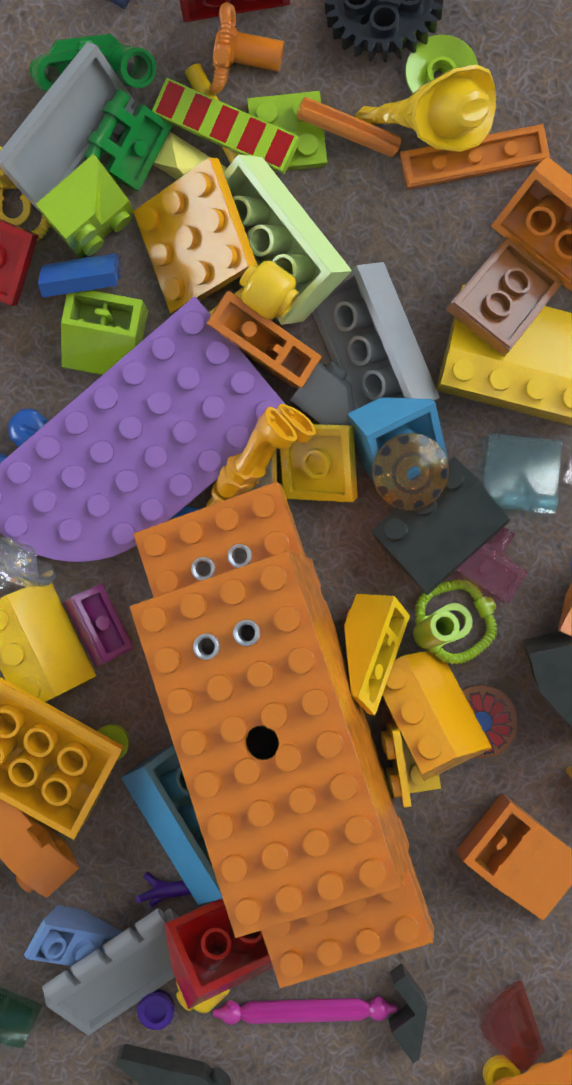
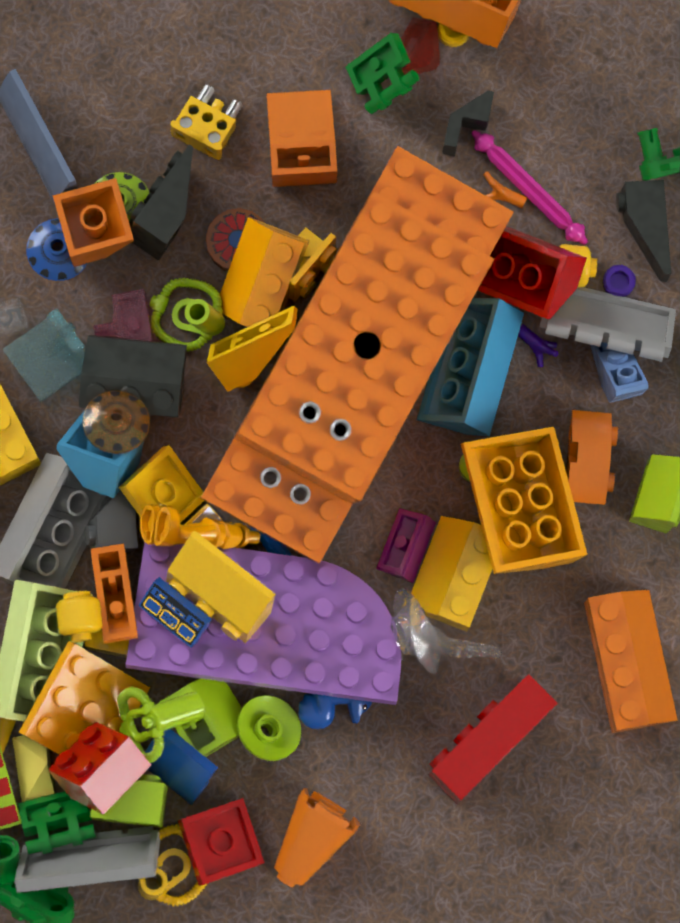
camera: 140 degrees left, 10 degrees down
(34, 385) = (280, 721): none -> lime dish
(120, 281) = (157, 717): none -> lime piece
(127, 197) = (99, 767): none -> red brick
(181, 425) = (220, 588): none -> yellow slope
(198, 372) = (175, 612): none -> tile
(319, 985) = (503, 193): none -> orange bar
(528, 985) = (378, 64): none -> green plate

